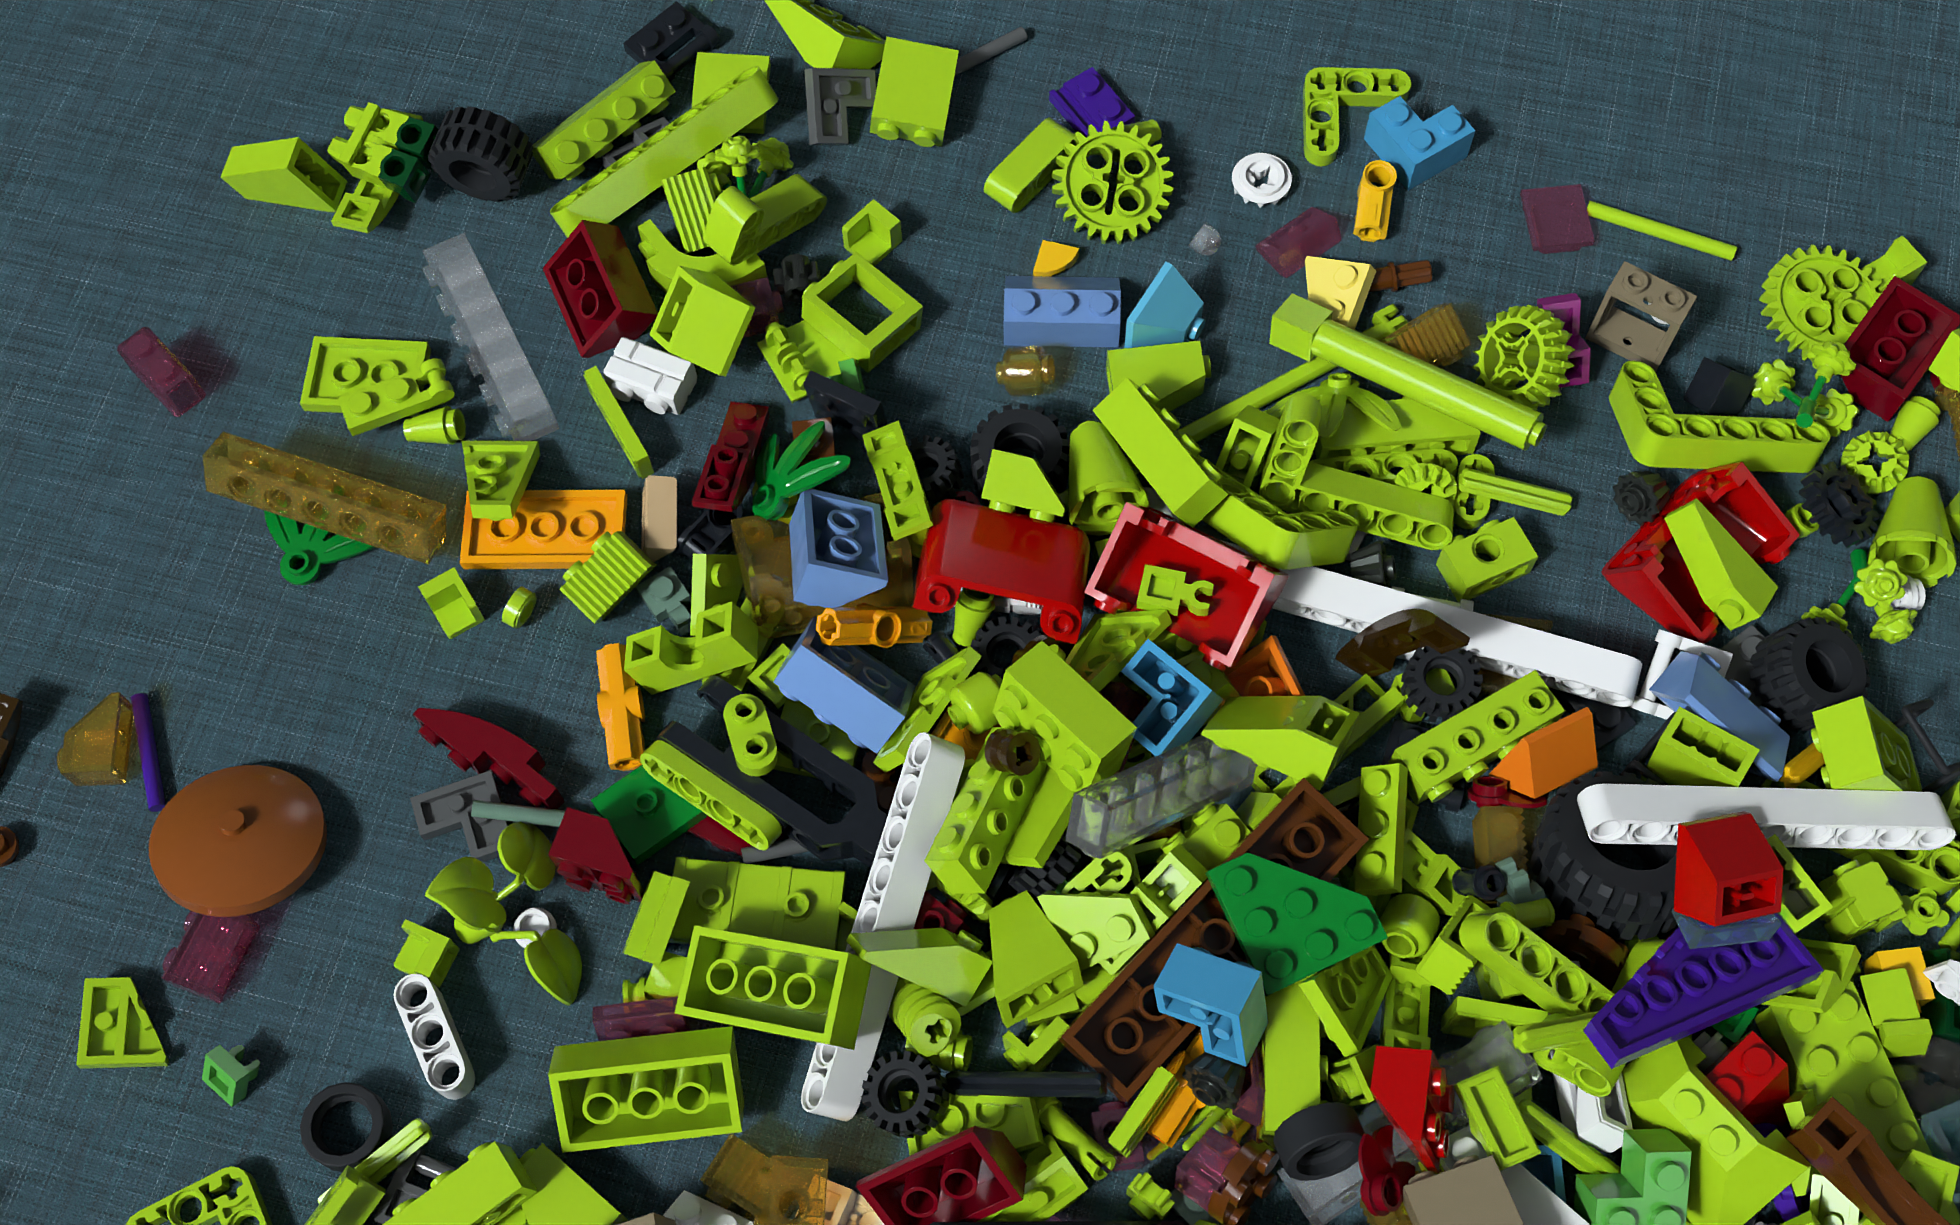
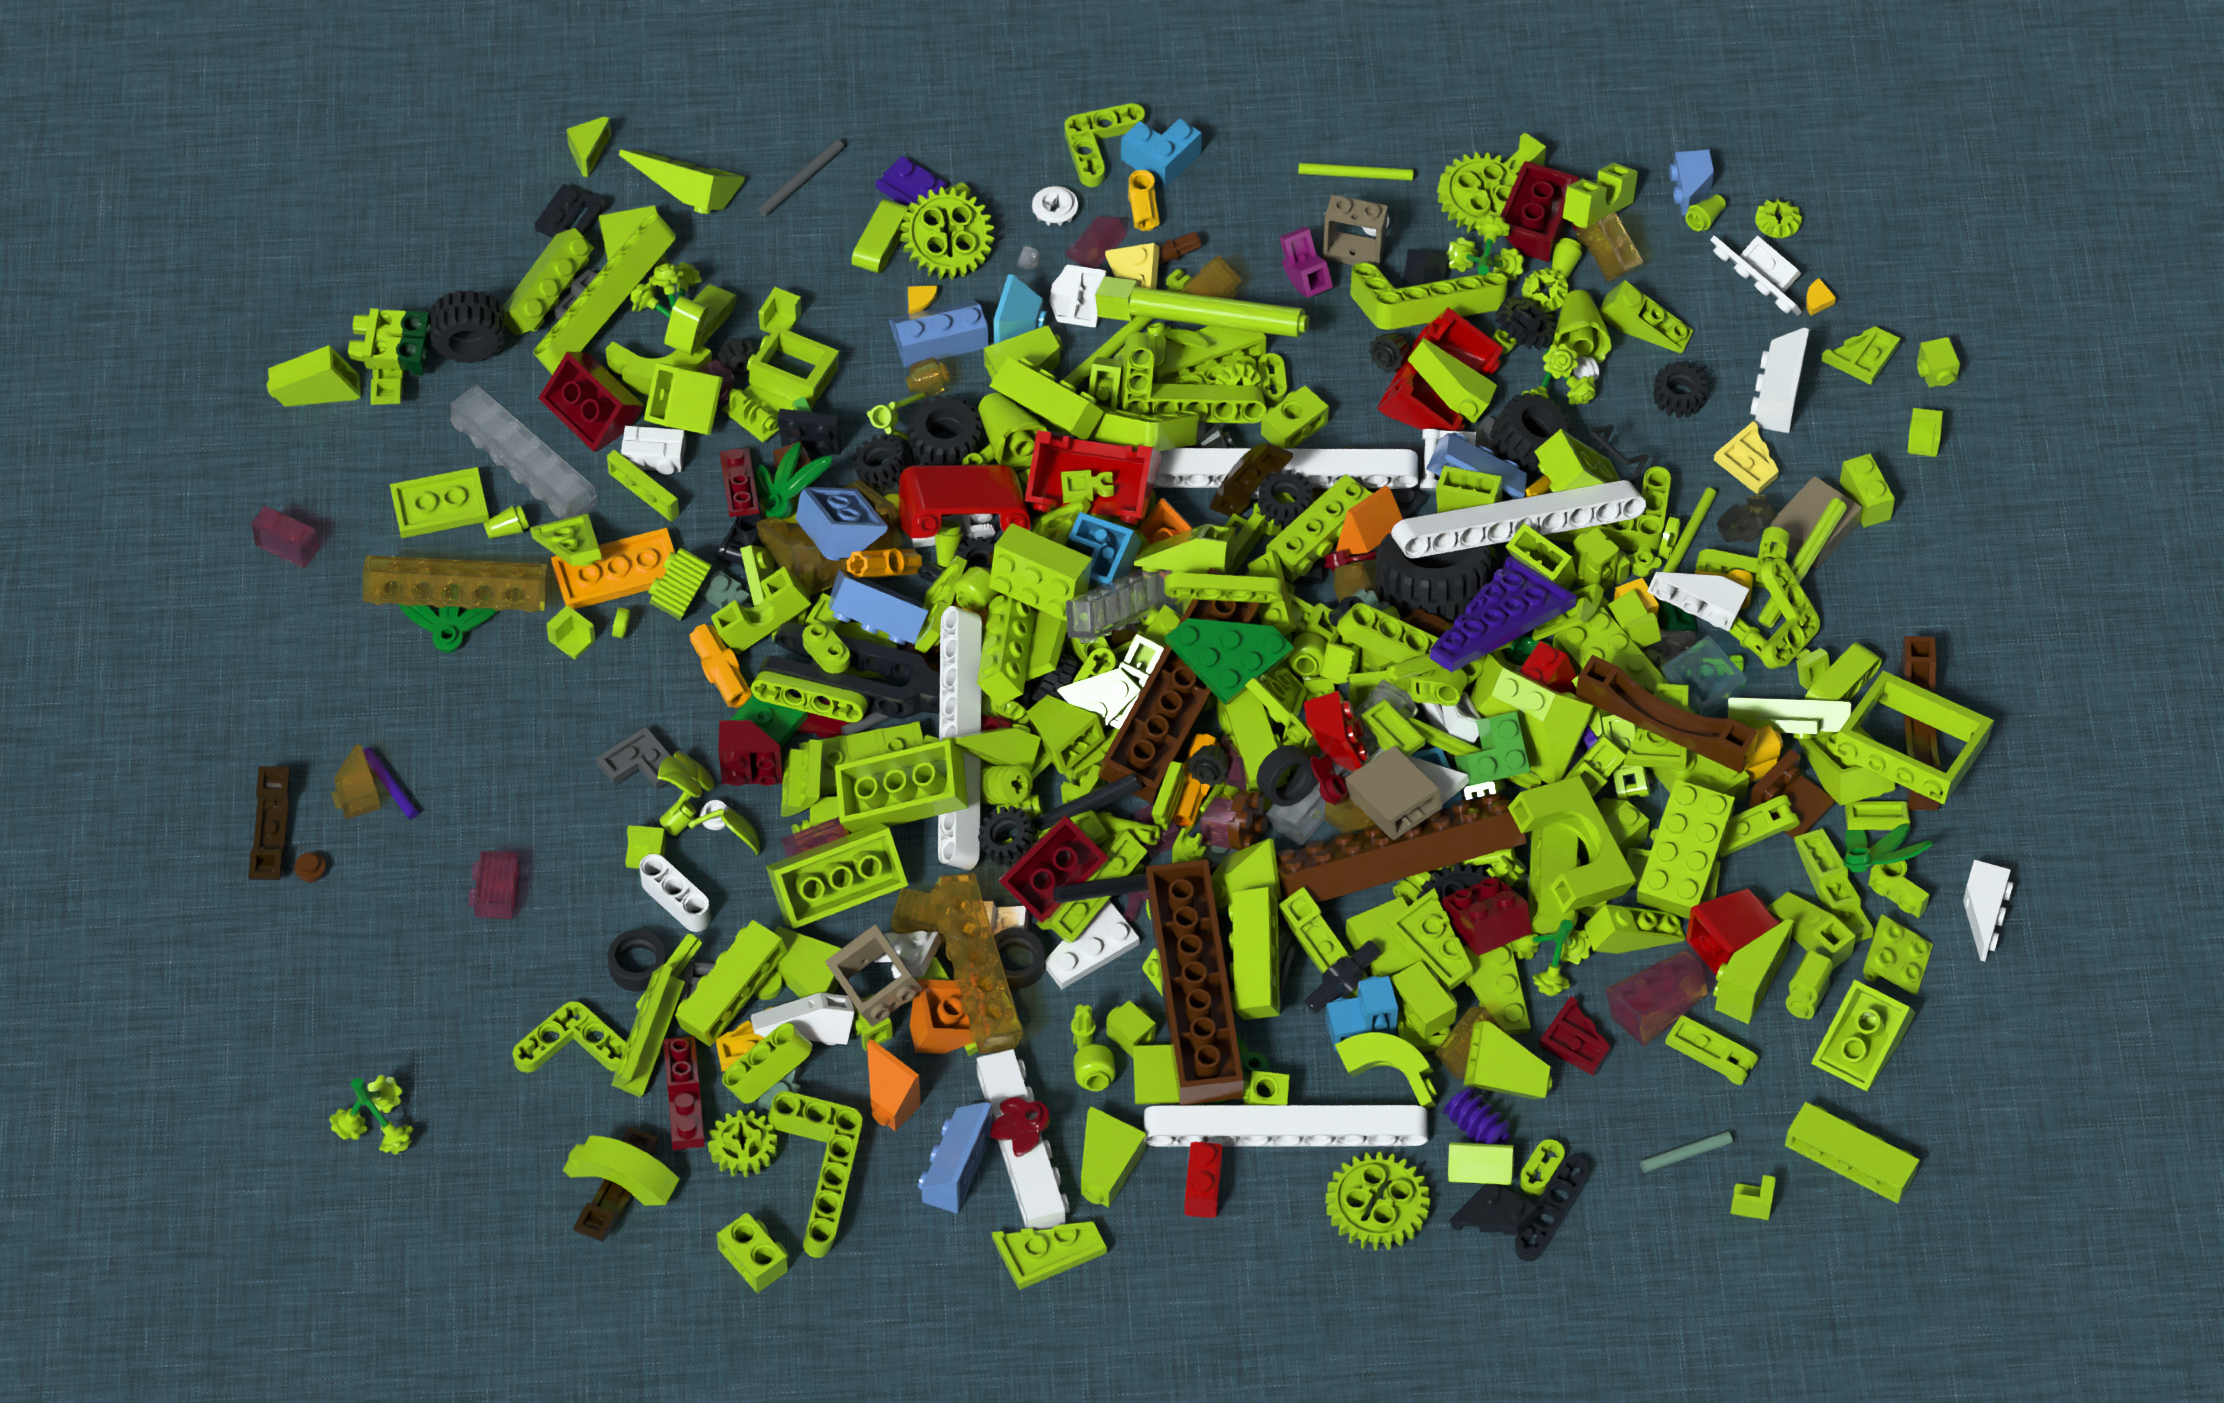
camera: 20 degrees left, 10 degrees down
(116, 1027) = (450, 948): lime wing -> none
(227, 1075) = (541, 952): bright green tile -> none
(238, 840) = (486, 812): dark orange dish -> none
(396, 397) = (473, 508): lime plate -> none
(489, 747) = (632, 712): dark red slope -> none
(517, 813) = (681, 745): sand green bar -> none
(659, 516) = (698, 536): tan slope -> none
(690, 202) = (642, 325): lime brick -> none
(828, 96) = (713, 222): dark grey plate -> none
(898, 480) = (865, 466): lime slope -> none
(913, 92) = (775, 205): lime brick -> none
(949, 414) = (887, 416): none -> lime plant
(1001, 754) = (1013, 600): dark brown wheel -> none
(1021, 482) = (959, 442): lime slope -> none
(1216, 996) = (1195, 703): dark azure brick -> none
(1247, 308) = (1074, 295): none -> white slope
(1312, 819) = (1223, 587): none -> lime beam
(1514, 491) = (1300, 370): lime axle -> none
(1536, 357) = (1287, 278): lime gear -> none
(1557, 218) = (1279, 181): clear pink piece -> none
(1726, 870) = (1495, 547): red slope -> none
(1746, 931) = (1507, 584): clear light blue slope -> none

